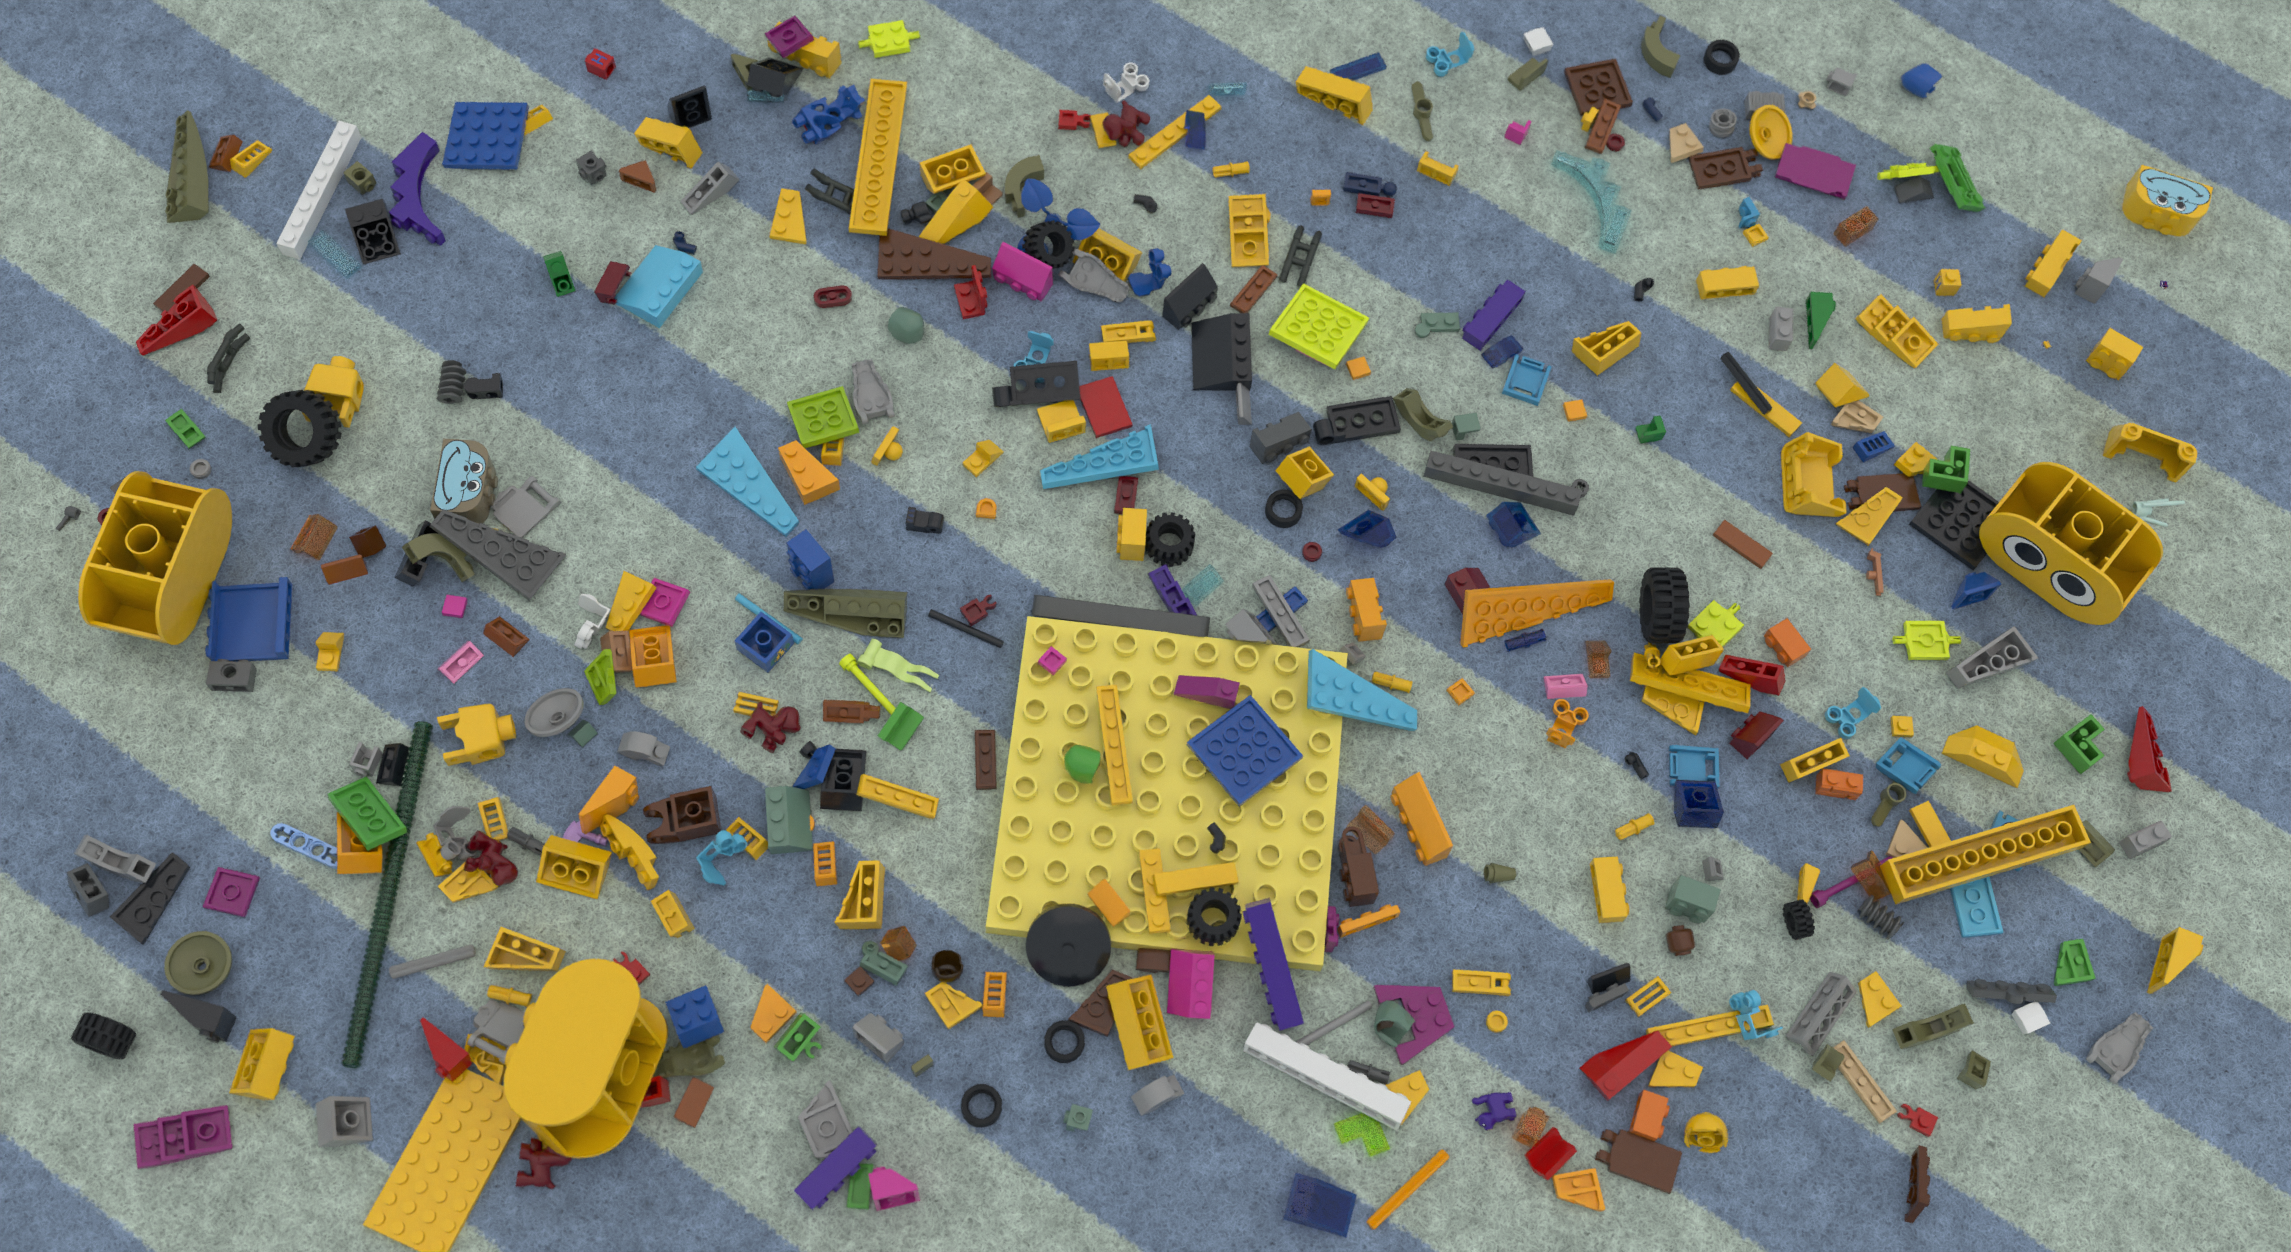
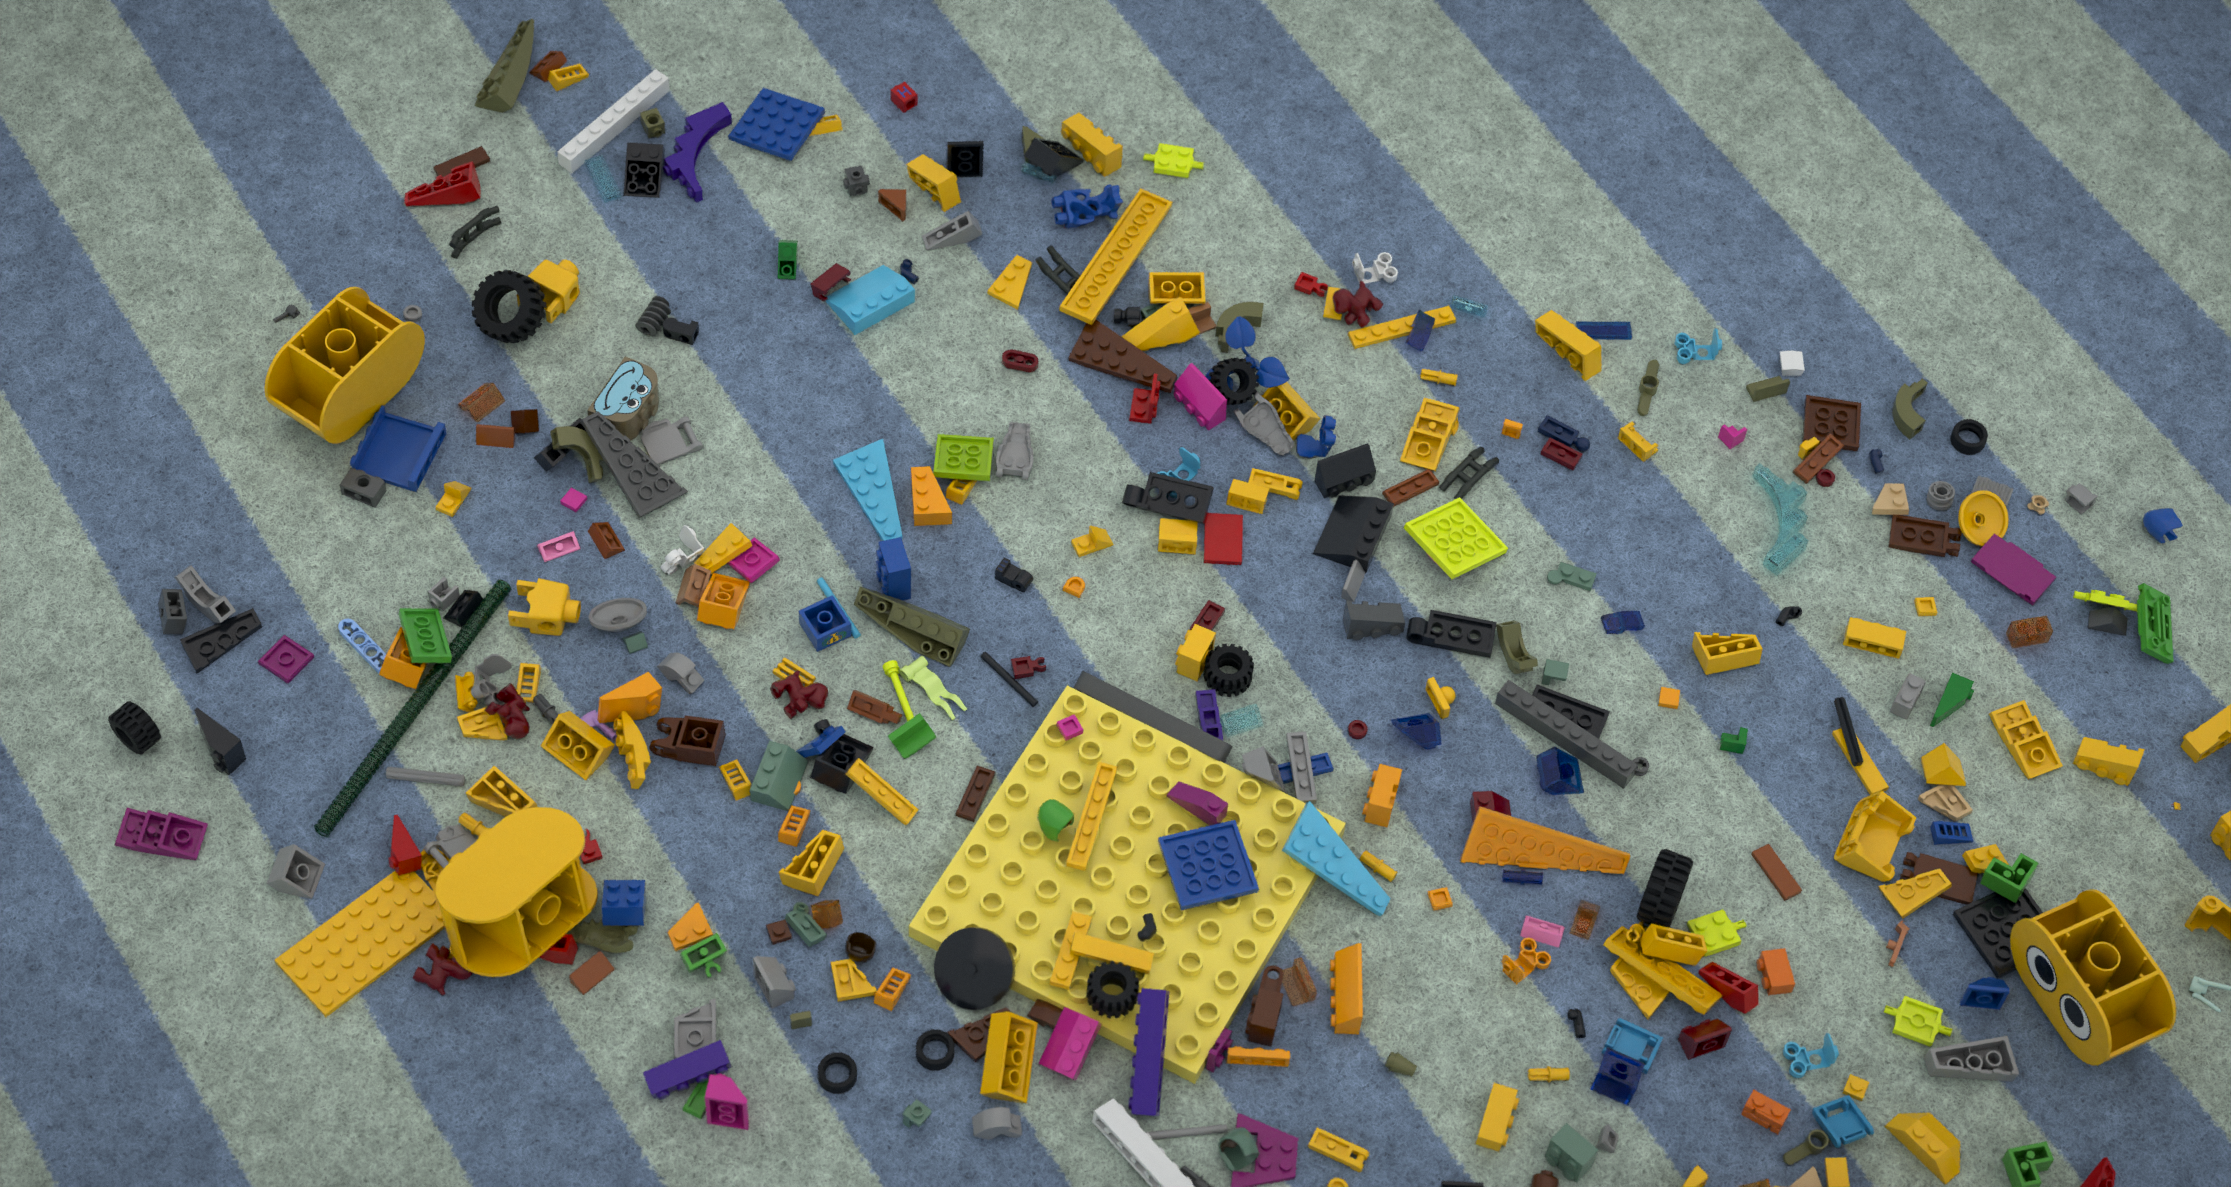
camera: 25 degrees right, 10 degrees down
(185, 428) = (414, 277): bright green slope -> none
(186, 957) = (232, 693): olive dish -> none
(262, 1064) = (251, 802): yellow slope -> none
(601, 677) = (671, 601): lime wing -> none
(672, 914) = (643, 814): yellow hinge -> none
(725, 844) = (713, 773): medium azure piece -> none
(789, 36) = (1081, 127): magenta tile -> none
(890, 449) = (1010, 503): yellow tile -> none
(906, 325) = (1074, 406): sand green piece -> none
(1105, 461) = (1204, 584): medium azure wing -> none
(1109, 903) = (1025, 944): light orange slope -> none
(1147, 201) = (1347, 378): black arm -> none
(1279, 521) = (1345, 695): black tyre -> none
(1304, 472) = (1380, 657): yellow brick -> none
(1354, 655) = (1353, 828): light grey tile -> none
(1358, 368) = (1477, 588): light orange tile -> none
(1493, 315) = (1629, 586): dark purple brick -> none
(1526, 377) = (1635, 652): dark azure container -> none
(1749, 213) = (1926, 584): dark azure bracket -> none
(1814, 760) = (1749, 1079): yellow brick -> none
(1947, 282) = (2098, 713): yellow brick -> none

